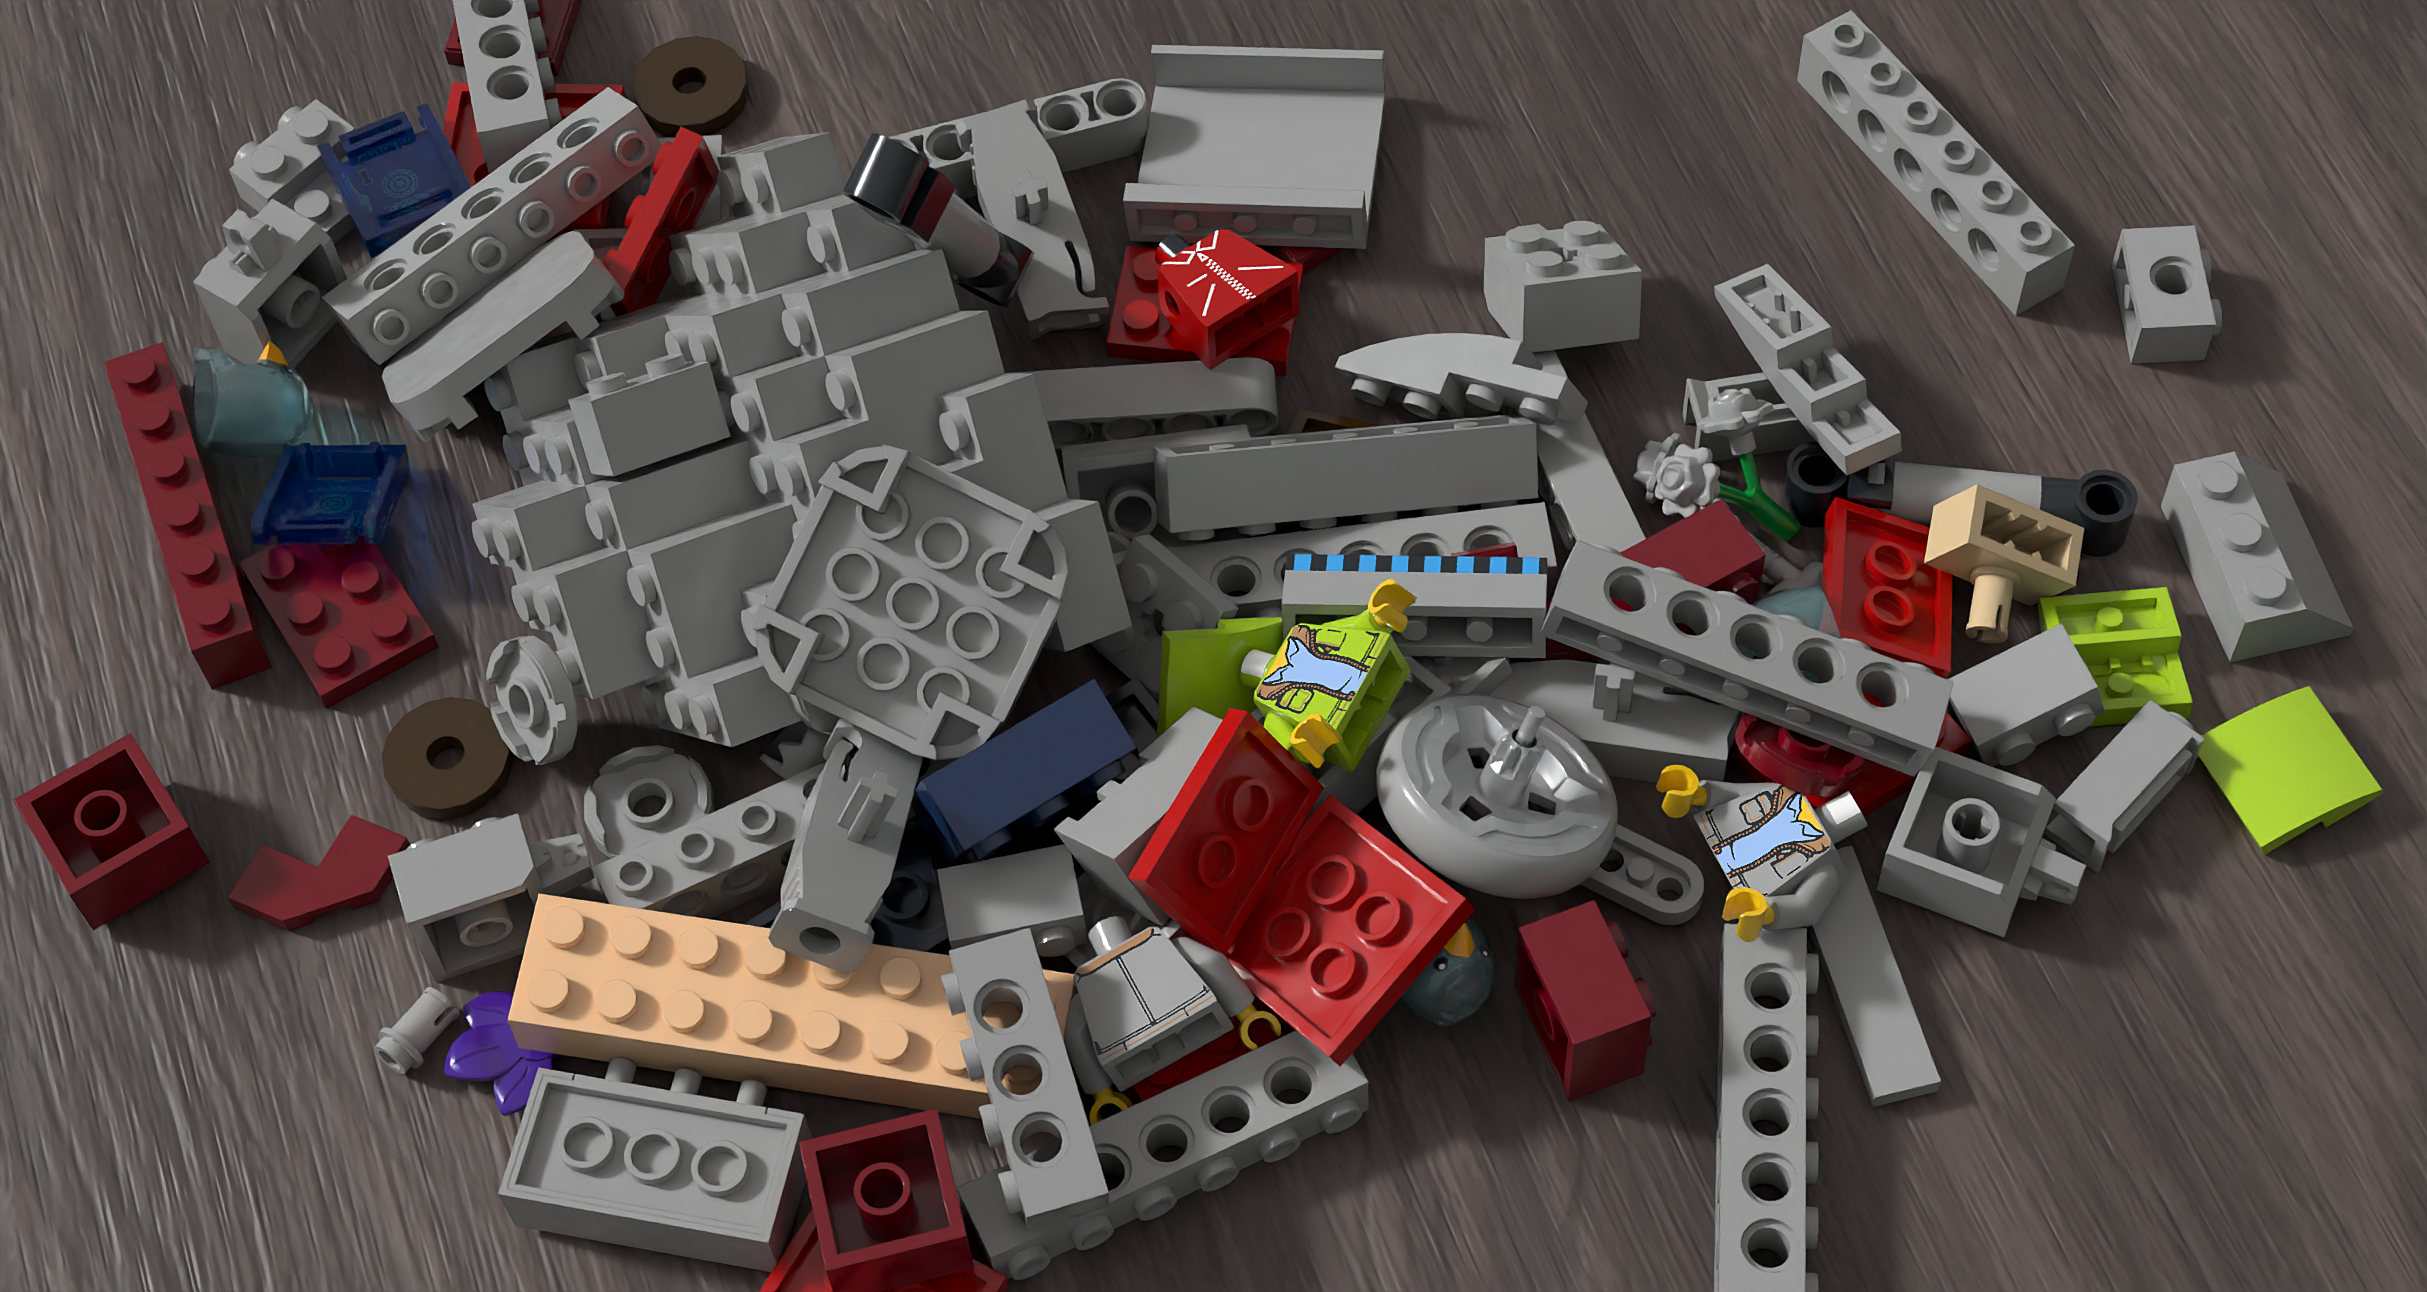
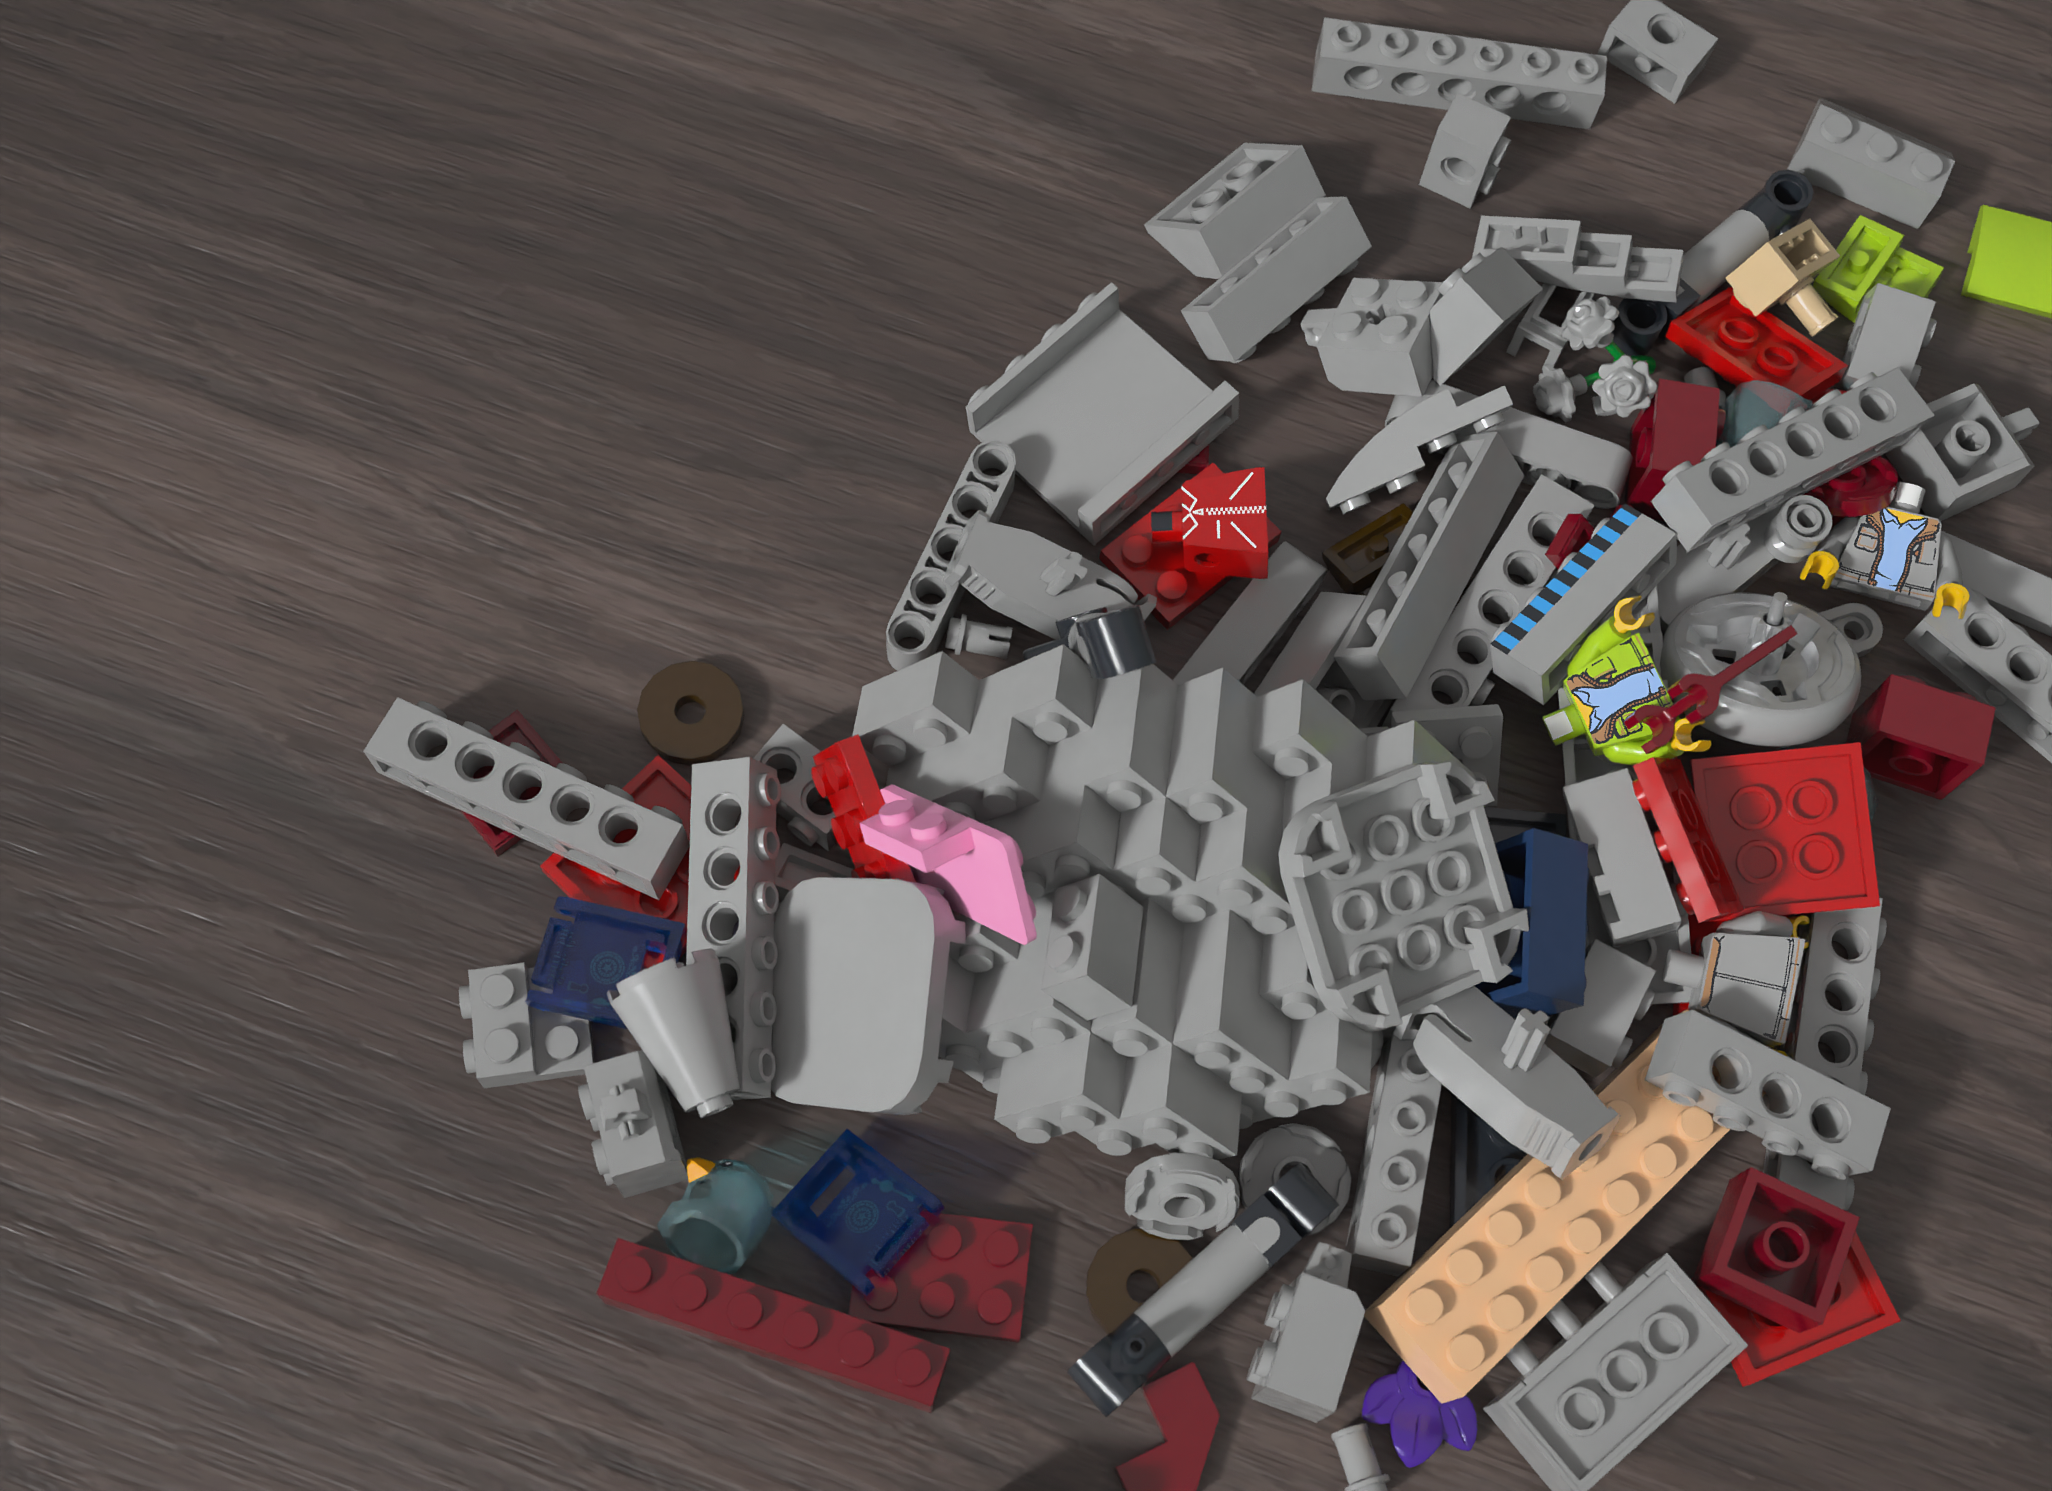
camera: 60 degrees left, 10 degrees up
(358, 230) = (683, 1029): none -> light grey cone
(549, 793) = (1202, 1289): none -> piece
(645, 232) = (959, 855): none -> bright pink bracket
(1205, 667) = (1534, 763): lime slope -> none
(1365, 701) = (1702, 691): none -> dark red flag
(1538, 175) = (1277, 279): none -> light grey brick
(1586, 106) = (1236, 207): none -> light grey slope
(1646, 324) = (1476, 309): none -> light grey slope
(1685, 742) = (1797, 529): none -> light grey wheel
(1836, 212) = (1466, 151): none -> light grey brick
(2124, 784) = (1973, 341): light grey window -> none

